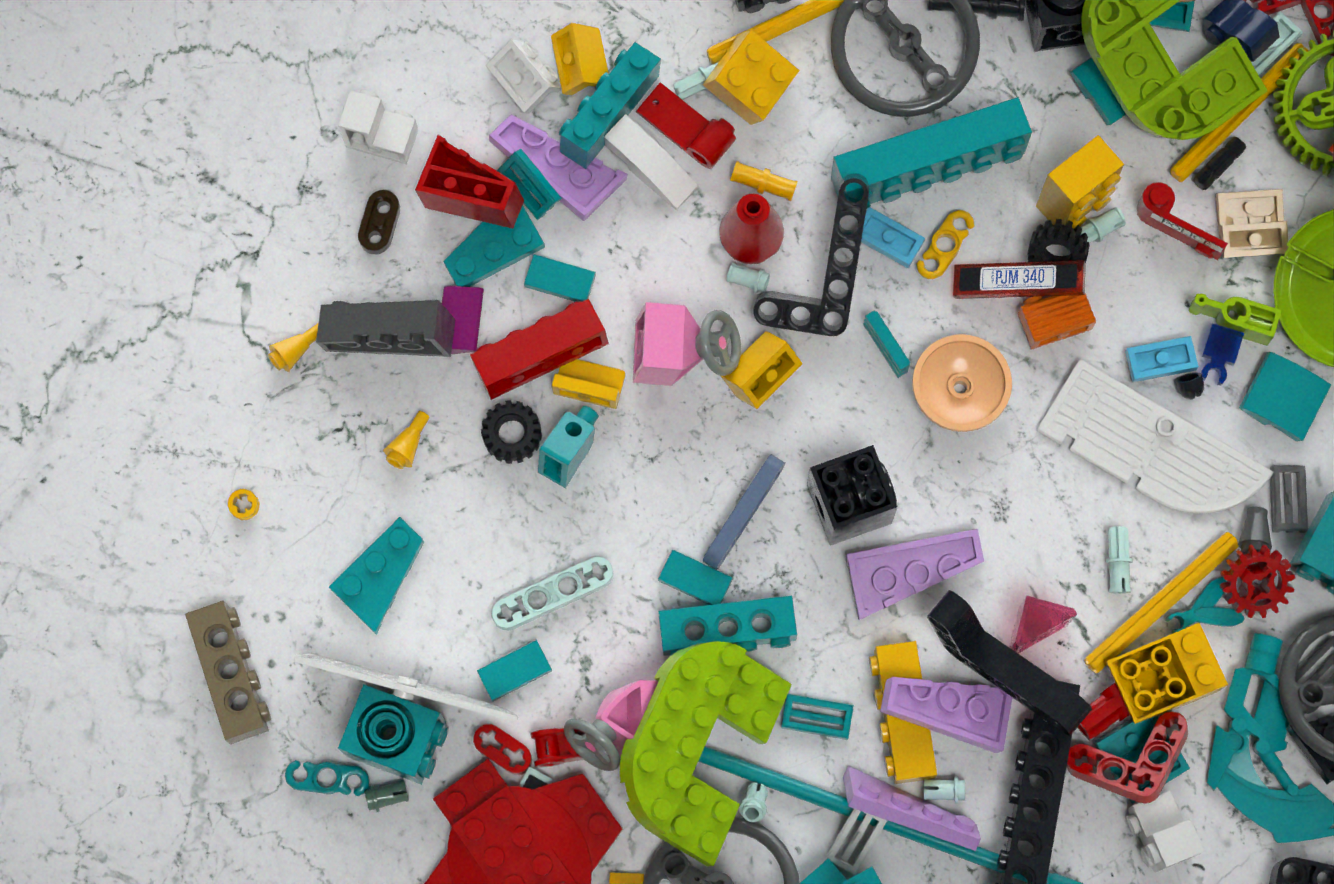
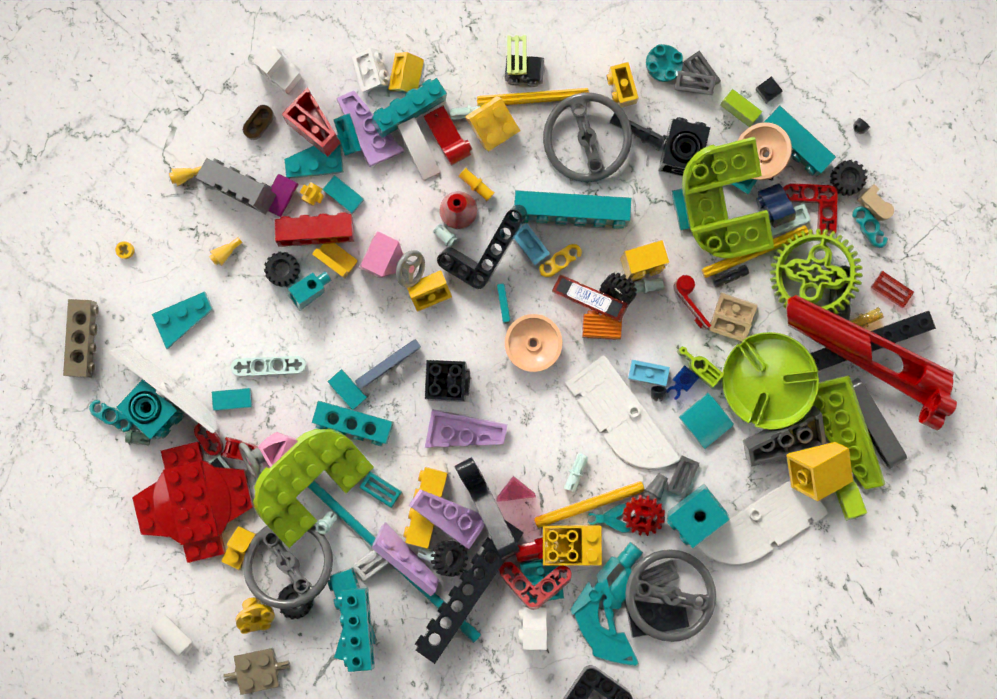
camera: 25 degrees right, 10 degrees up
(511, 296) = (311, 194): none -> yellow gear
(967, 785) = (440, 558): none -> black tyre

